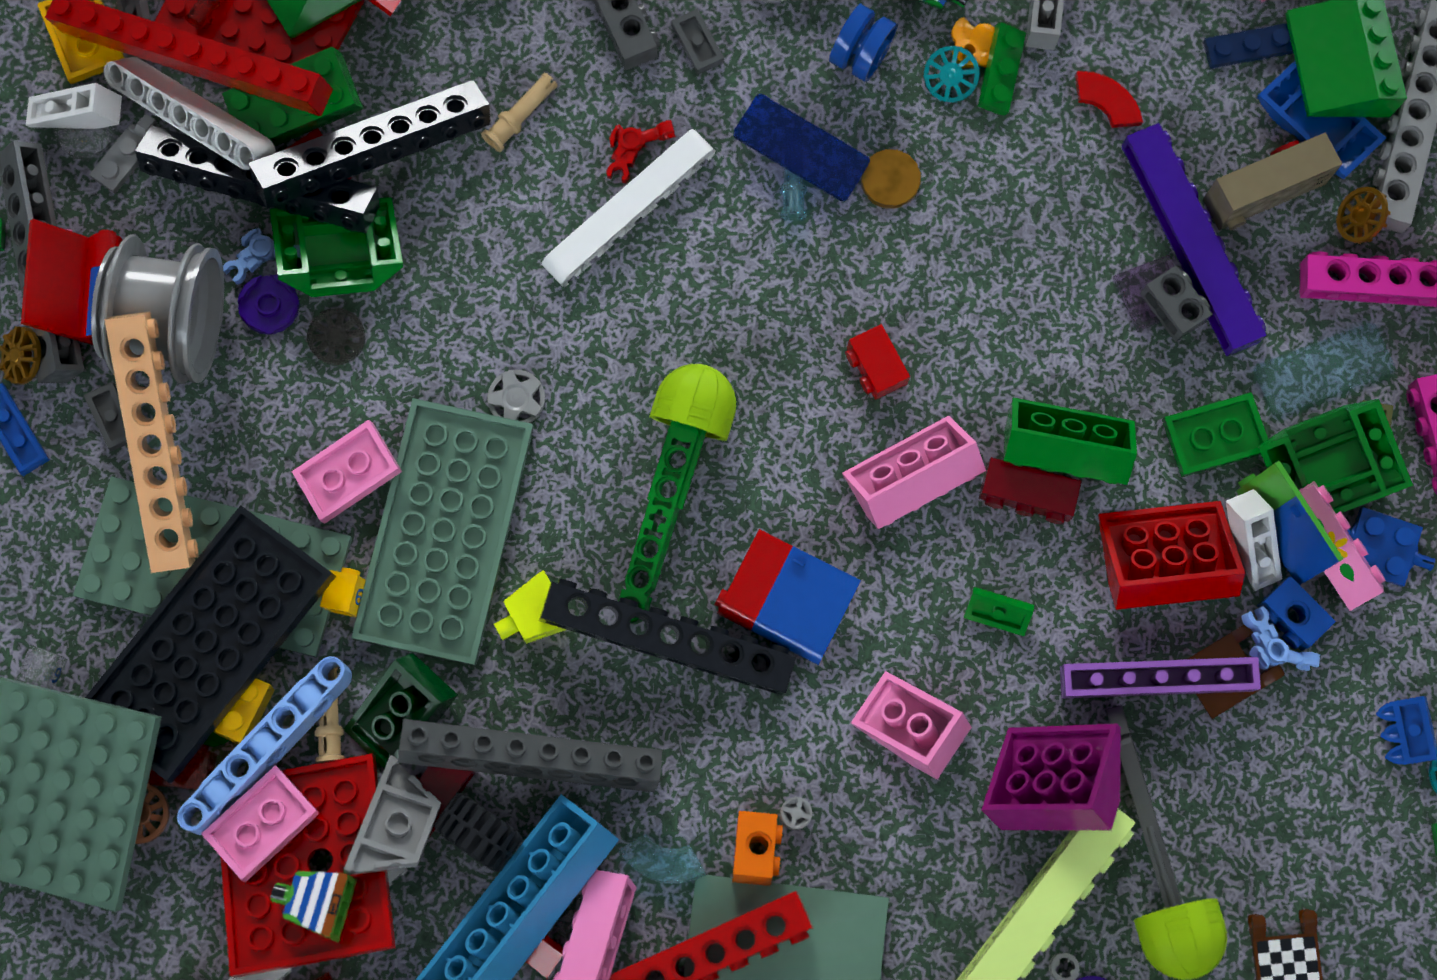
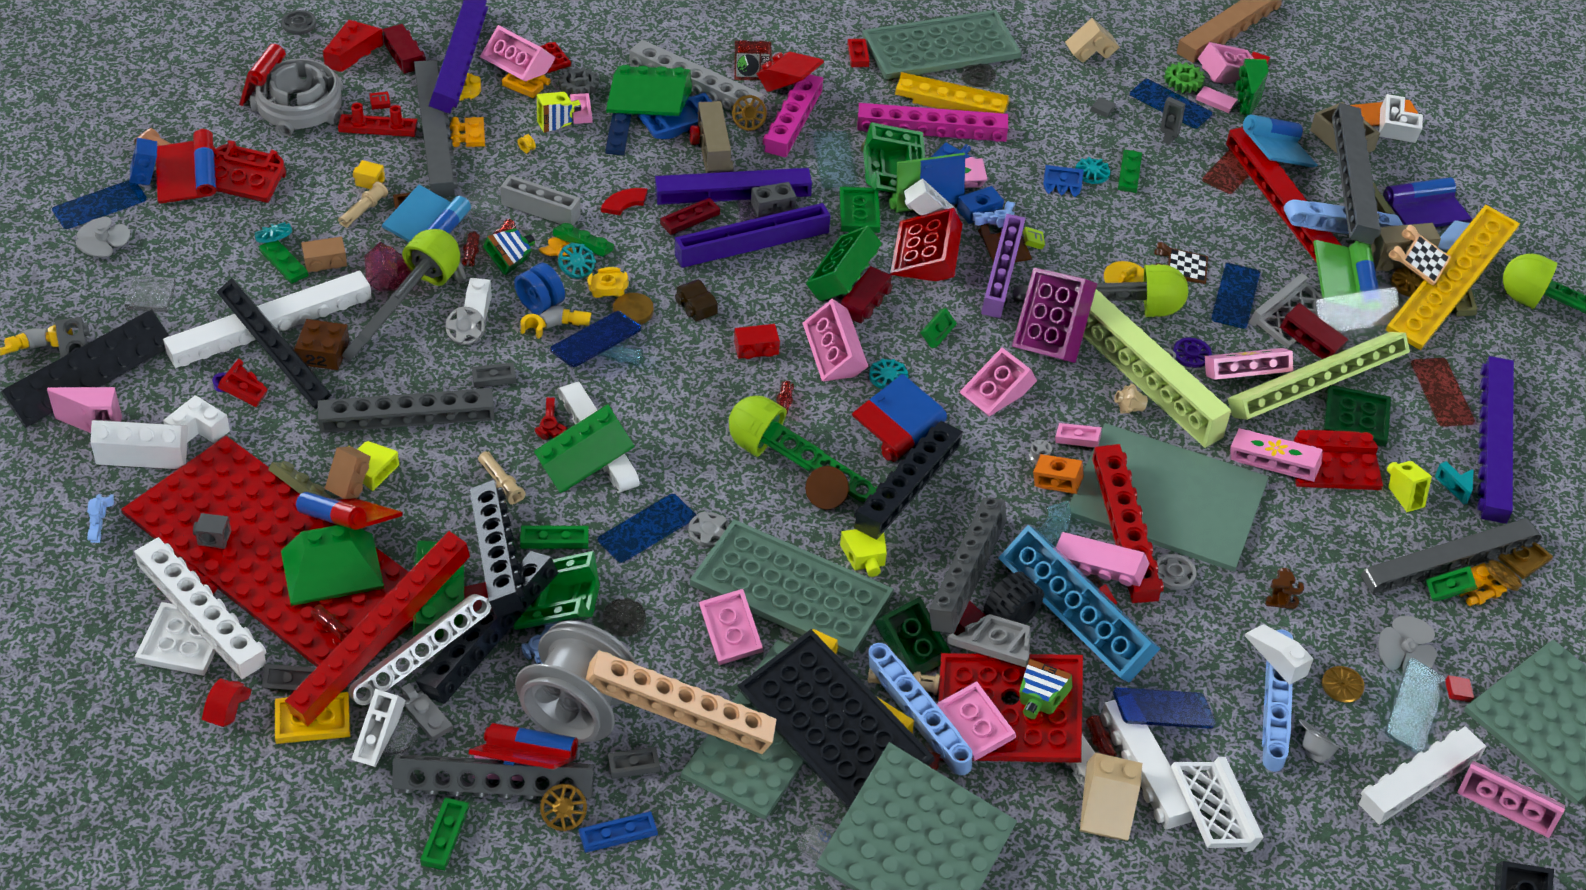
camera: 75 degrees left, 30 degrees down
(438, 210) = (554, 537): none -> green plate
(496, 319) = (646, 528): none -> clear blue piece
(580, 197) = (584, 448): none -> green slope
(623, 531) = (827, 487): none -> reddish brown tile
(782, 430) = (785, 397): none -> clear red axle
(831, 80) = (554, 316): none -> yellow piece
(847, 862) = (1078, 435): none -> bright pink plate
(884, 562) = (886, 374): none -> teal wheel
(919, 143) = (608, 282): none -> yellow plate
(932, 257) = (696, 300): none -> dark brown brick
(944, 928) = (1130, 399): none -> tan rock
(1090, 296) = (752, 235): none -> dark purple brick
(1106, 198) = (690, 216): none -> dark red plate
(1223, 871) = (1123, 272): none -> yellow shield
(1255, 712) = (1033, 238): none -> lime tile

